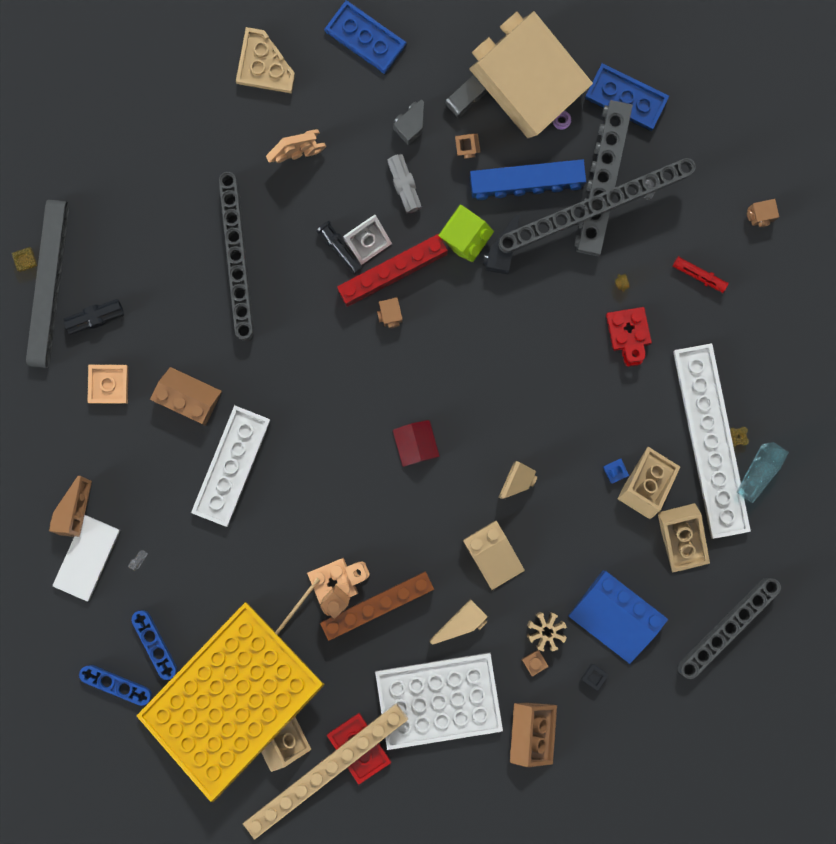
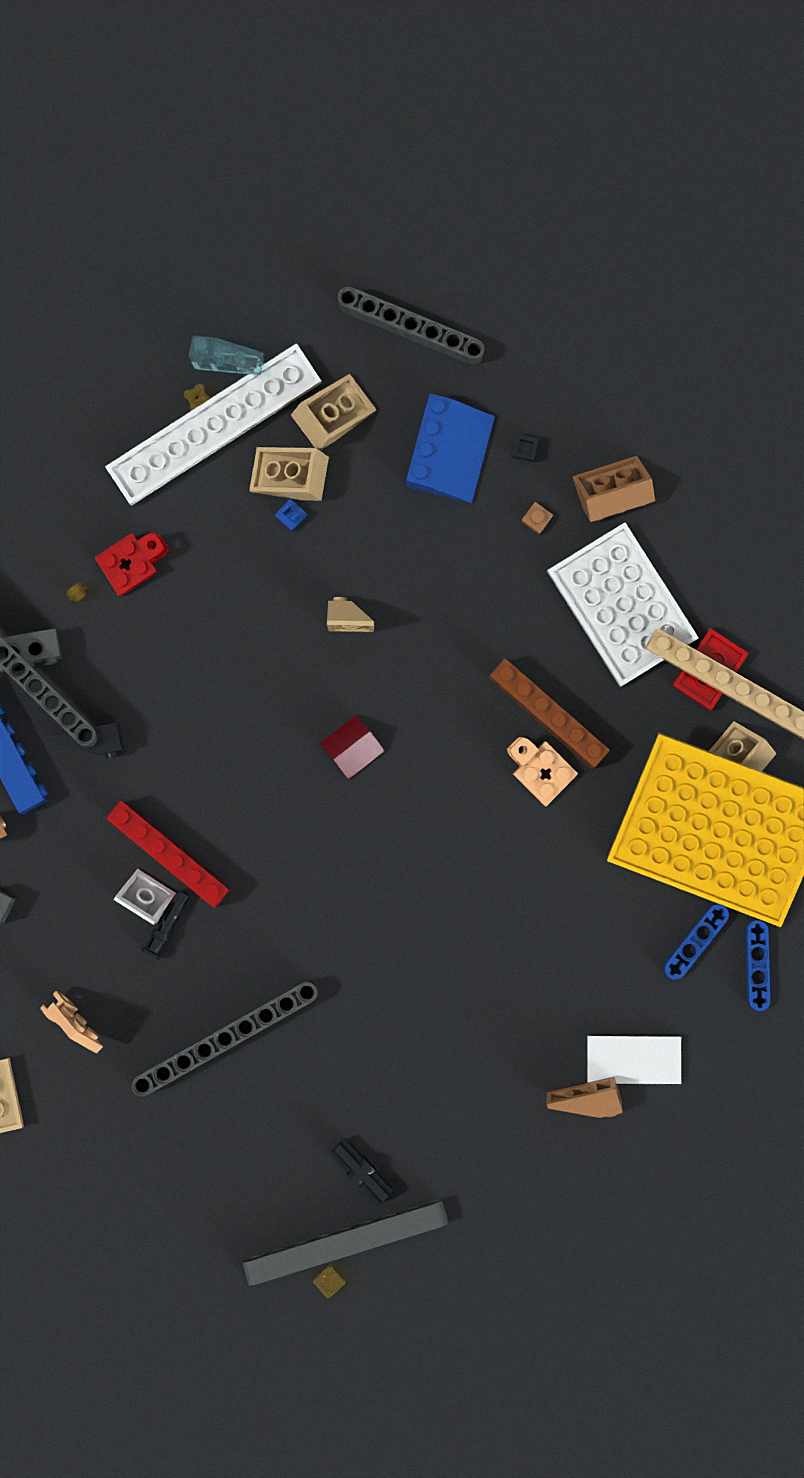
camera: 115 degrees left, 0 degrees up
(108, 384) = (431, 1121): light nougat plate -> none
(135, 563) = (612, 1000): clear tile -> none
(186, 395) = (406, 1026): medium nougat slope -> none
(231, 466) = (464, 941): white plate -> none
(297, 606) = (586, 801): tan piece -> none
(334, 602) = (565, 760): medium nougat brick -> none
(390, 313) = (218, 836): medium nougat brick -> none
(404, 183) = (63, 883): light grey piece -> none
(463, 622) = (525, 612): tan slope -> none
(466, 233) = (93, 787): lime slope -> none
(493, 555) = (439, 610): tan slope -> none
(549, 625) = (506, 520): tan gear -> none
(700, 274) = (32, 507): red pin -> none

